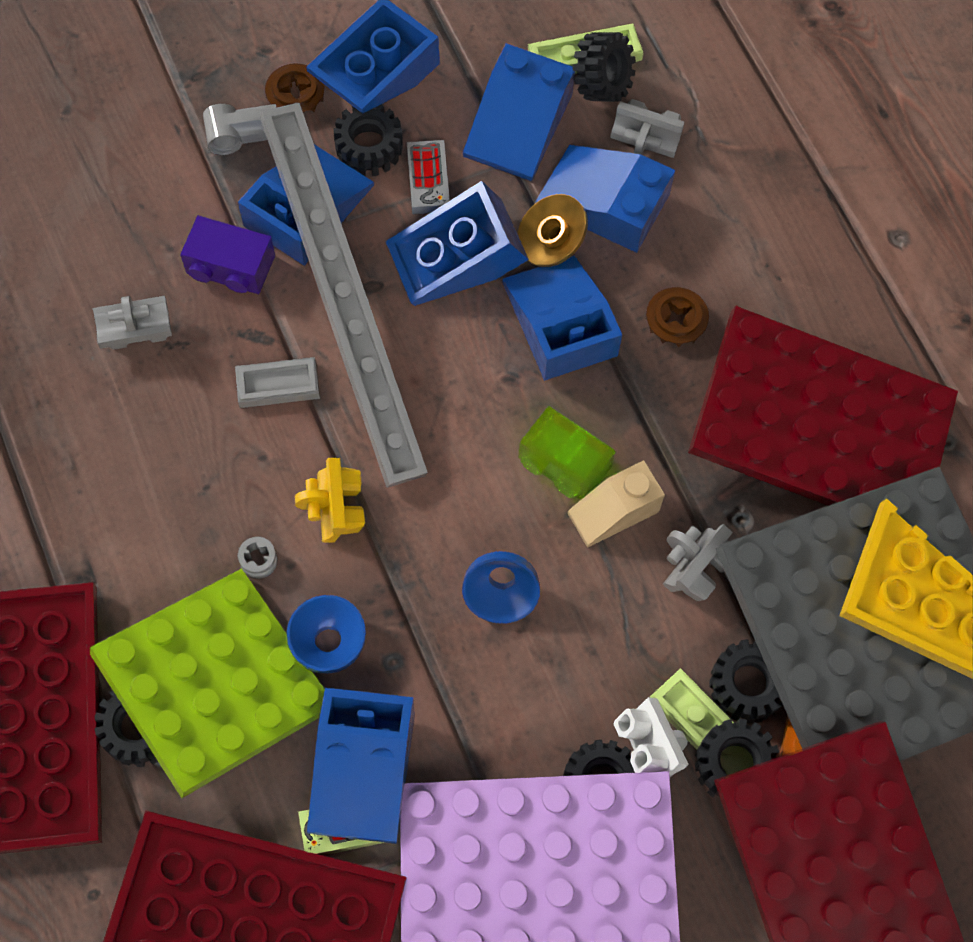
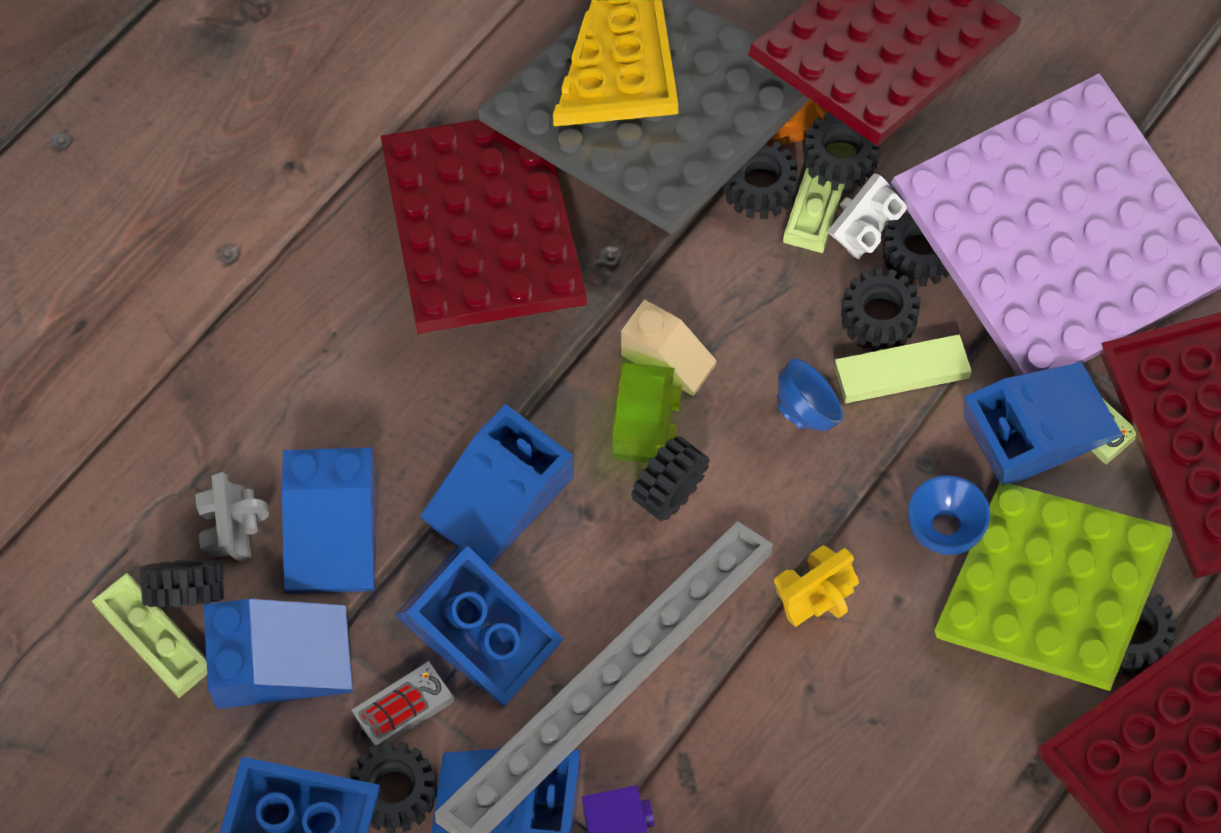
camera: 115 degrees left, 5 degrees down
(251, 568) = (927, 626): light grey bush -> none
(277, 382) = (726, 717): light grey tile -> none
(489, 433) = (670, 478): none -> black tyre
(490, 693) = (902, 368): none -> yellowish green tile
(546, 220) = (429, 547): pearl gold dish -> none
(560, 679) = (886, 289): none -> black tyre
(681, 302) = (429, 379): reddish brown gear -> none
(696, 555) = (677, 262): light grey hips -> none

